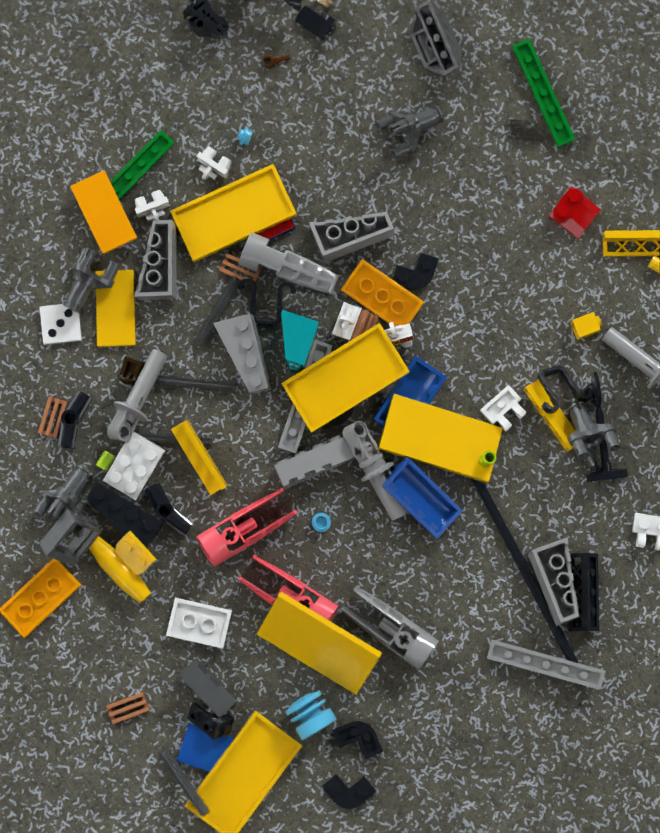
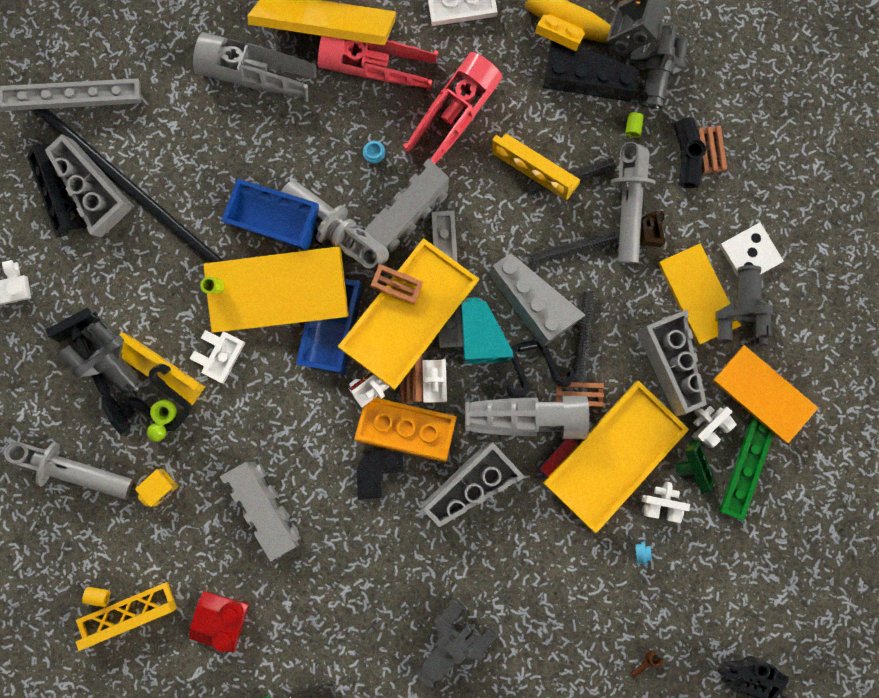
camera: 160 degrees right, 0 degrees up
(134, 465) = (601, 131): white plate -> none
(175, 518) = (557, 105): black piece -> none
(177, 181) = (697, 466): none -> dark green tile
(358, 412) = (377, 277): none -> nougat tile
(512, 278) = (261, 509): none -> light grey wedge
(570, 368) = (157, 431): none -> lime plate

